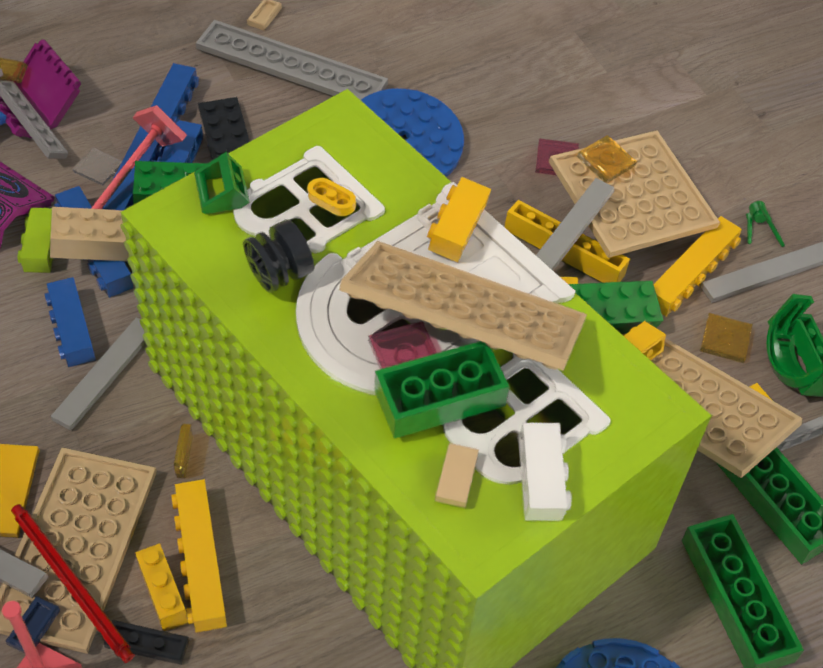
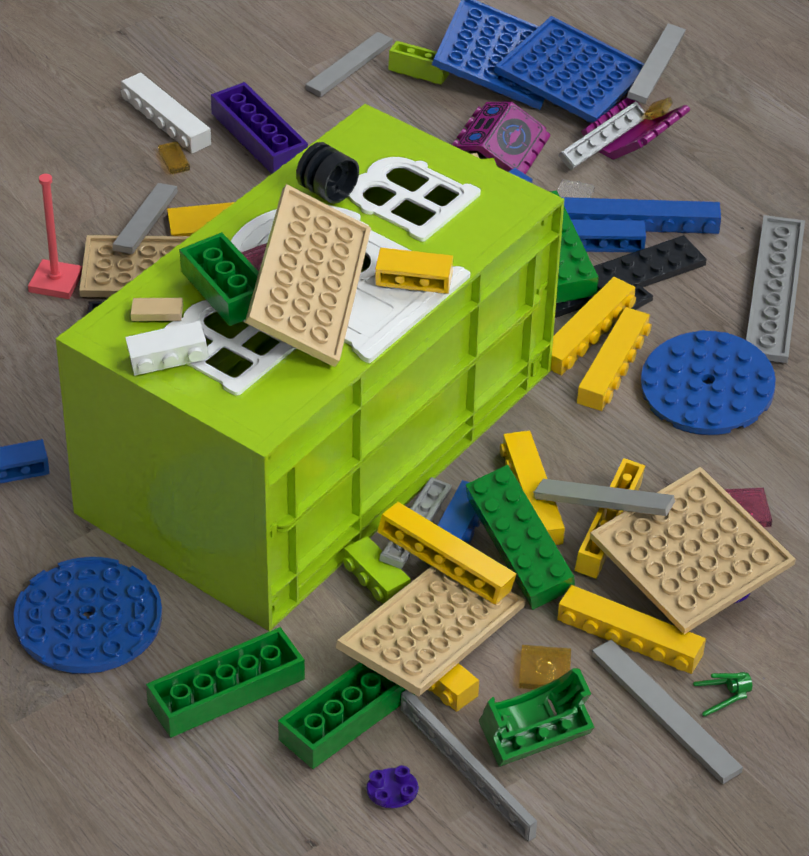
camera: 80 degrees right, 10 degrees down
(37, 620) = (91, 257): dark blue tile -> none
(73, 584) = (130, 267): red piece -> none
(159, 128) = (608, 196): coral tile -> none
(235, 192) = (407, 143): green tile -> none
(331, 196) = (412, 197): yellow plate -> none
(606, 159) = (719, 513): clear yellow tile -> none

